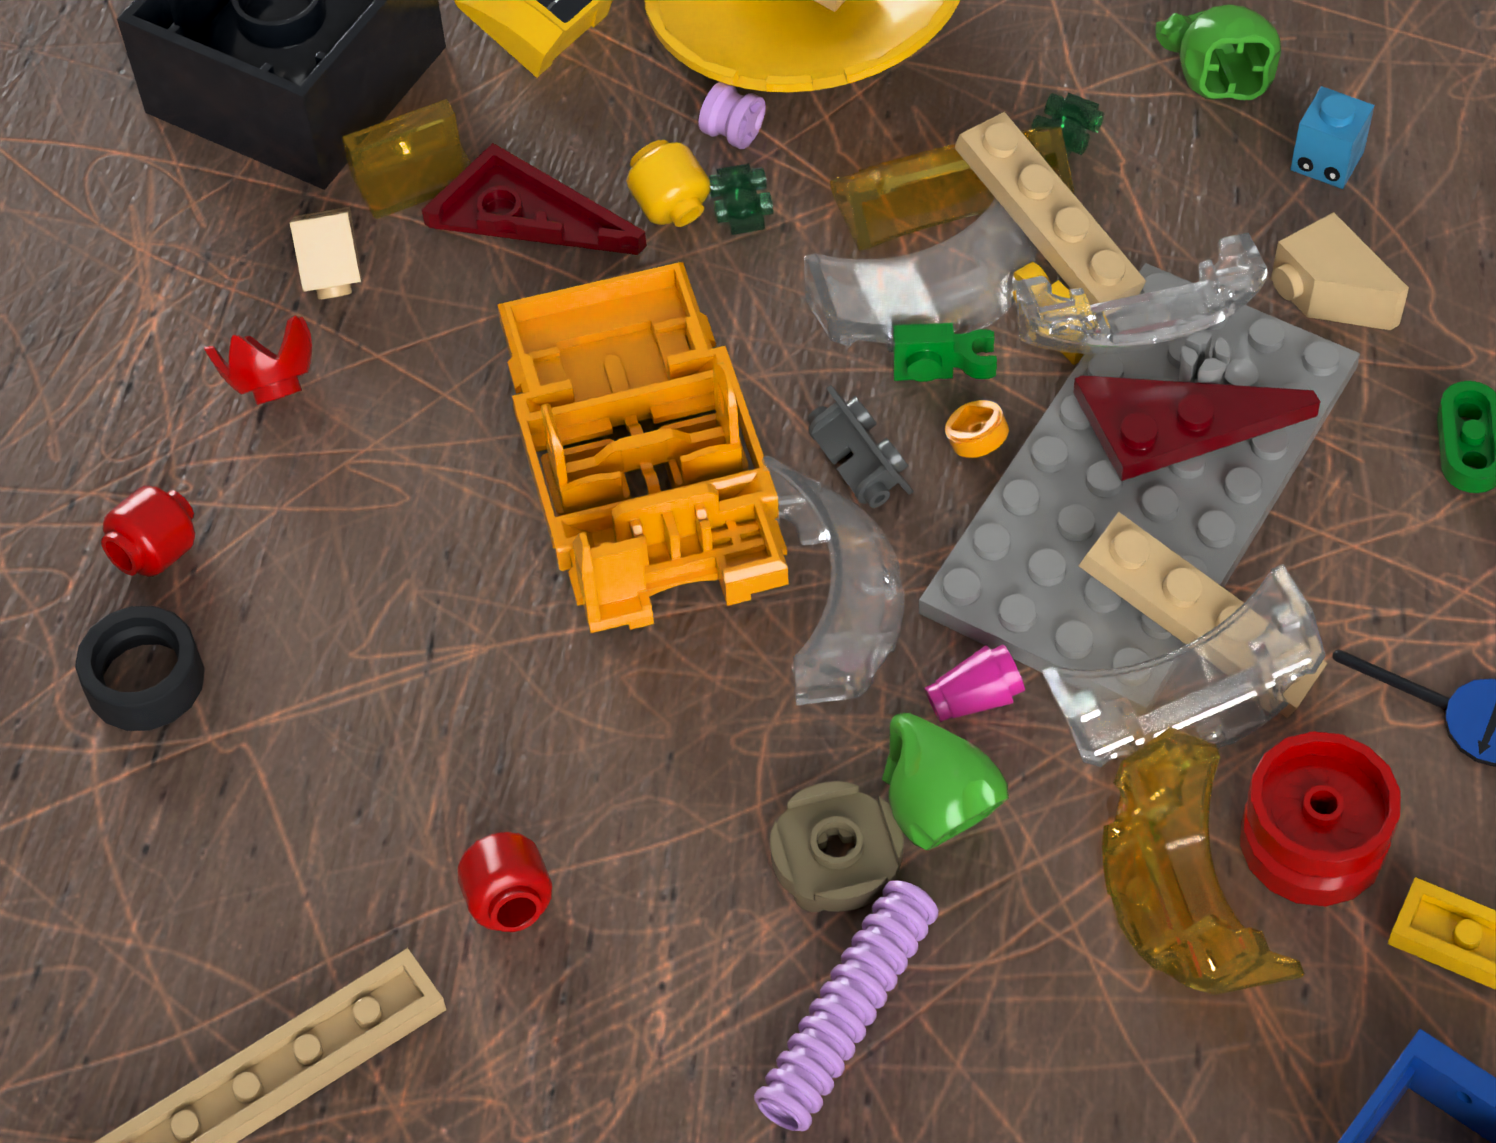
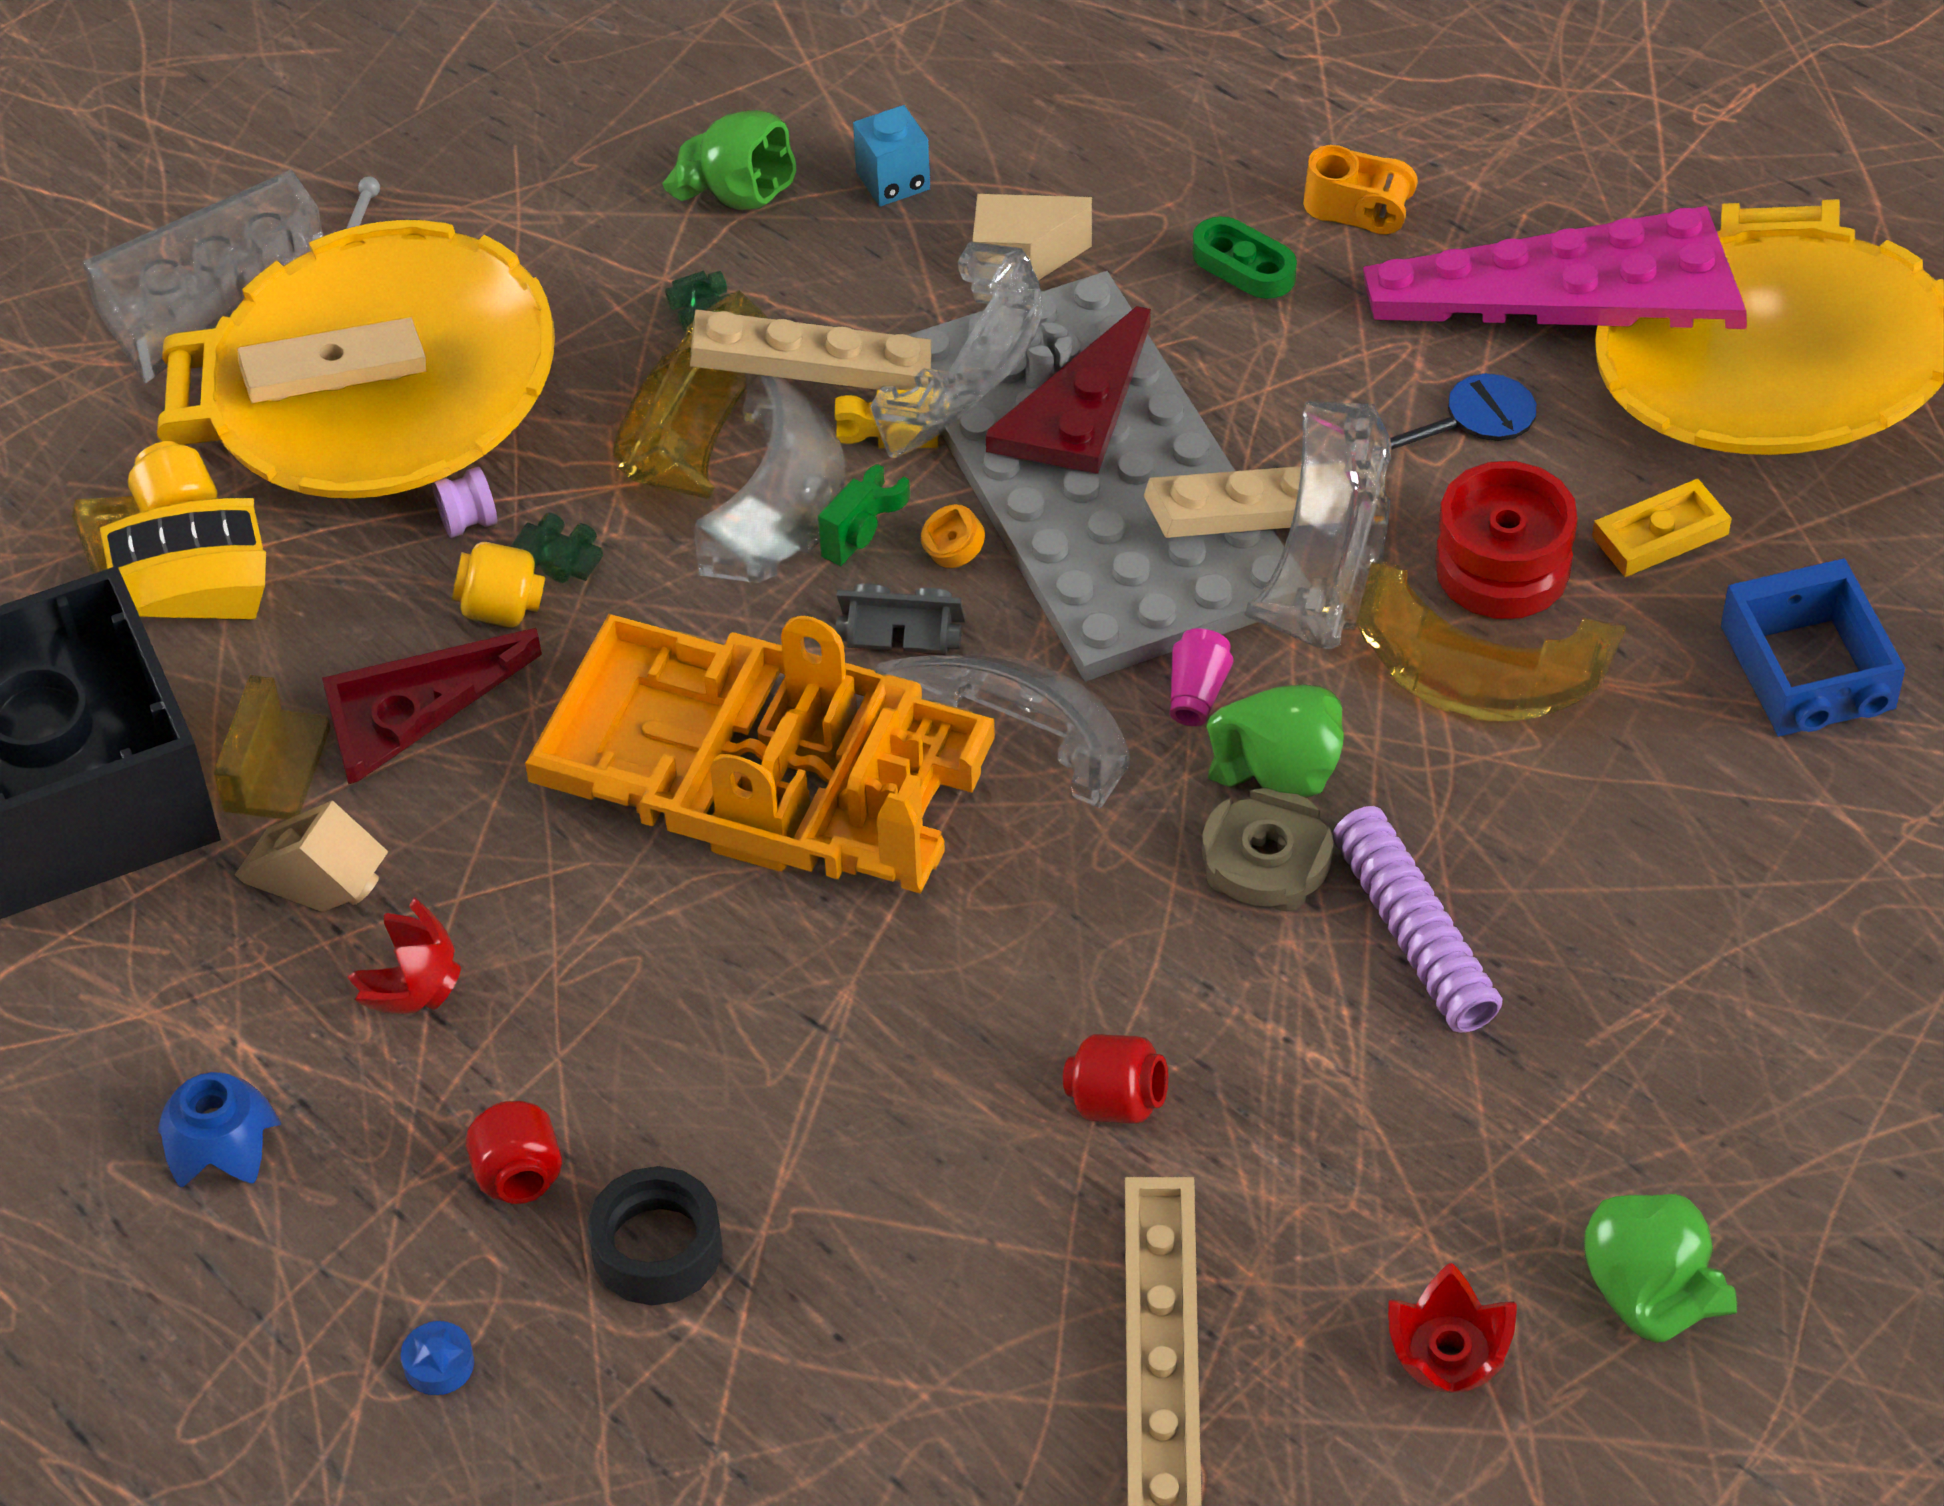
camera: 55 degrees left, 5 degrees down
(56, 341) = (225, 1138): none -> blue piece

